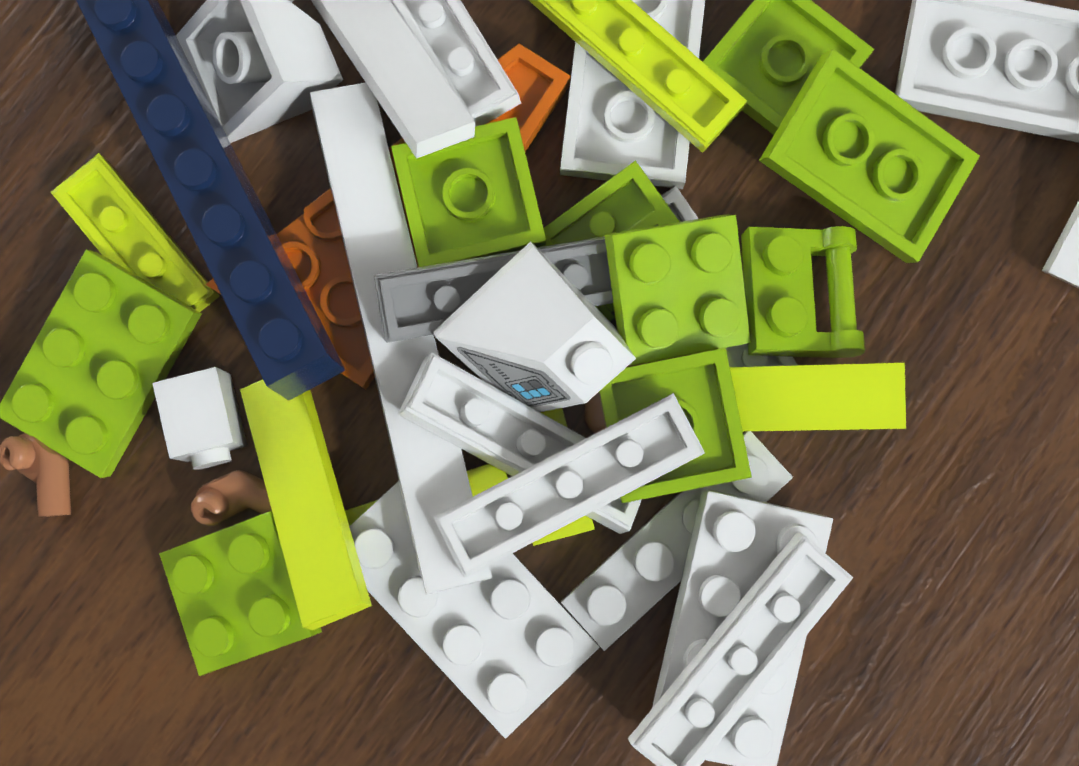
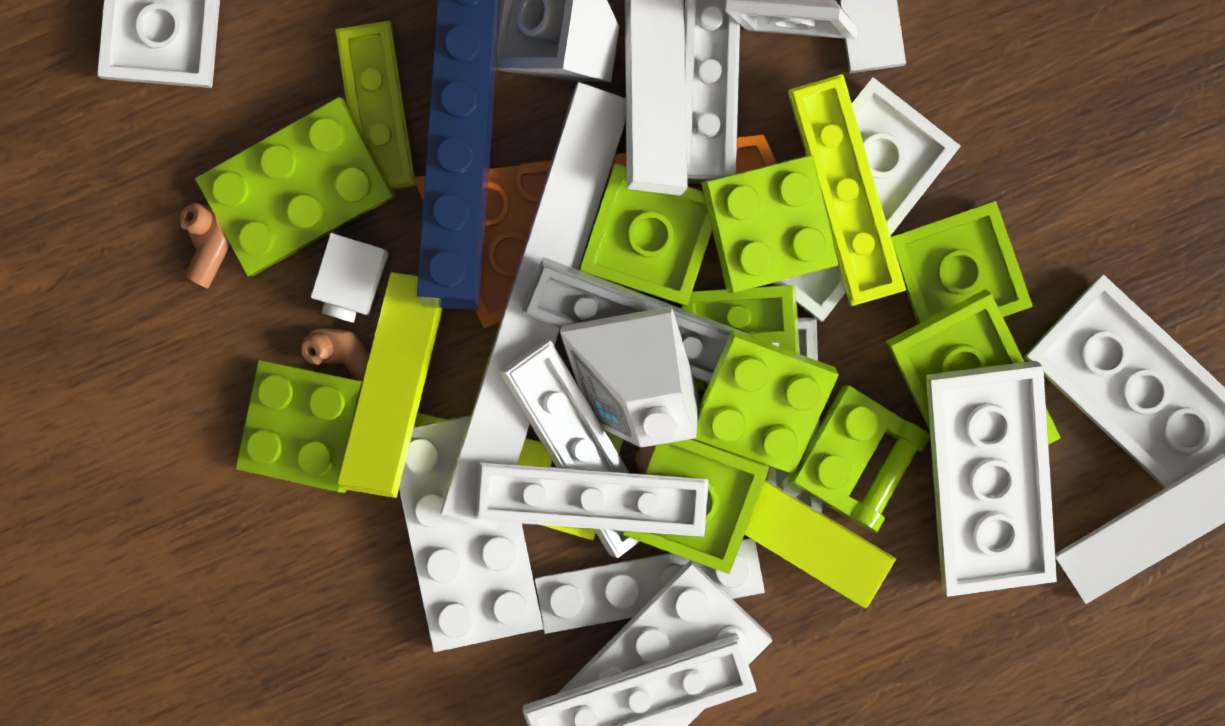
camera: 30 degrees right, 5 degrees up
(576, 114) = (770, 224): none -> lime plate
(943, 228) = (991, 478): none -> white plate

